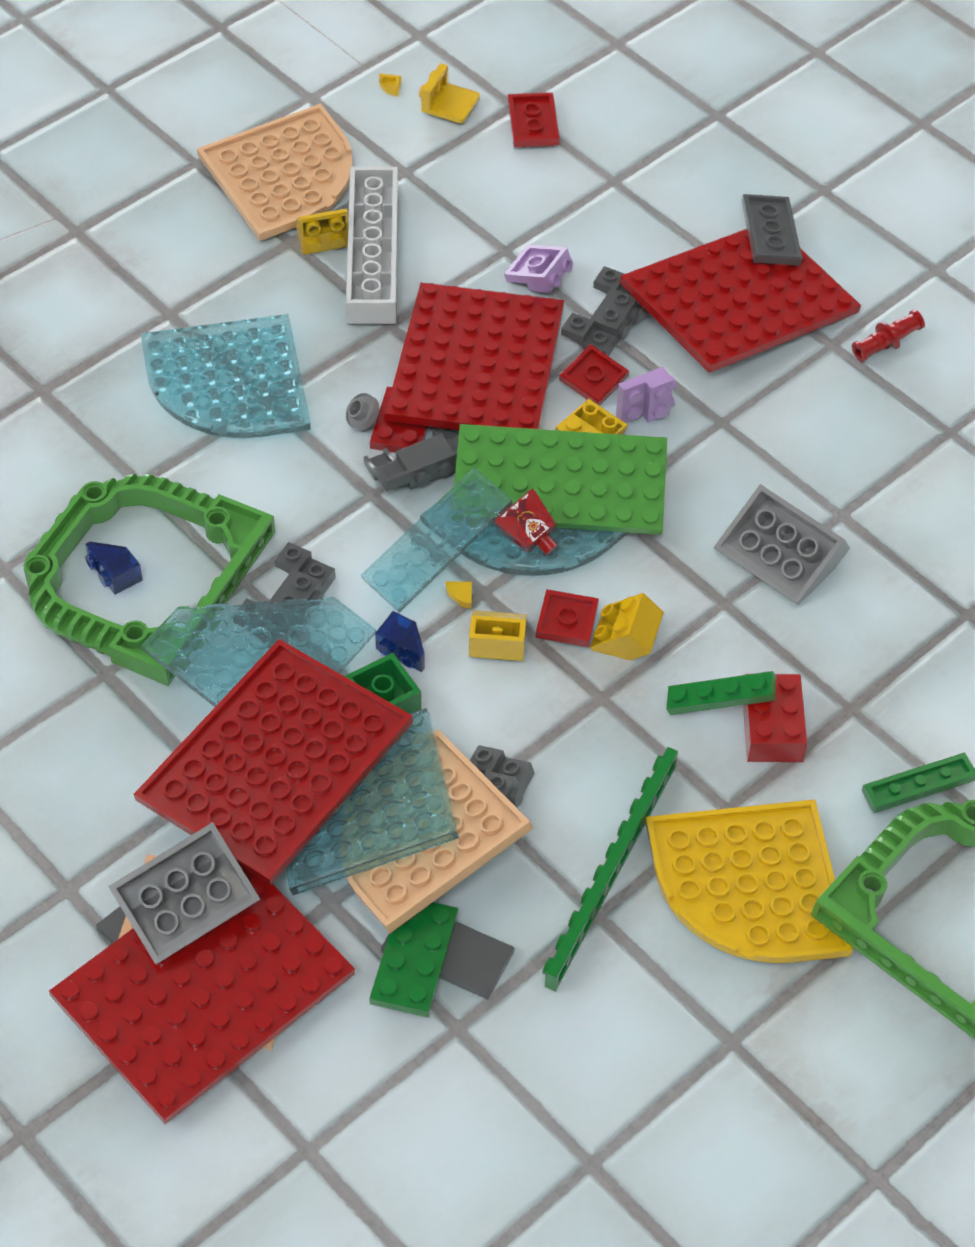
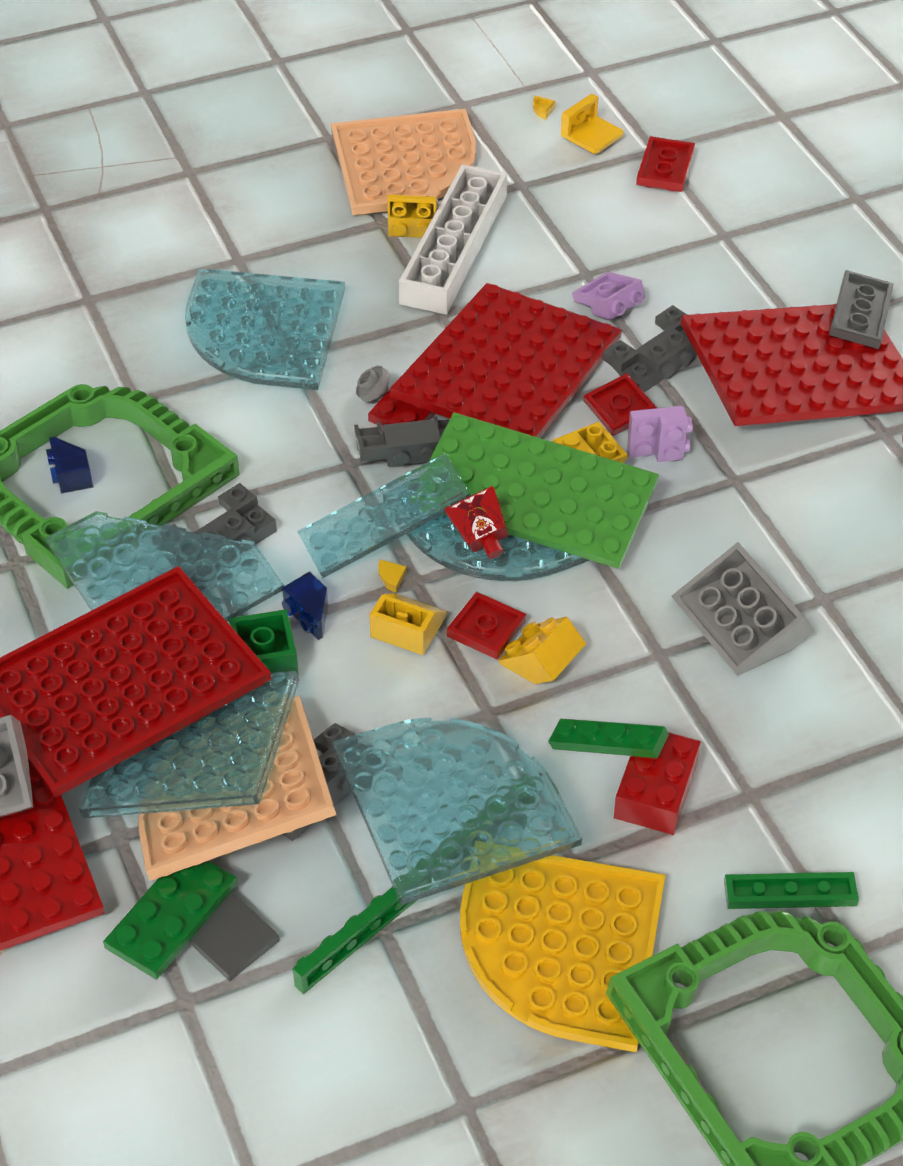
camera: 20 degrees right, 5 degrees down
(617, 788) = (452, 803): none -> clear light blue plate

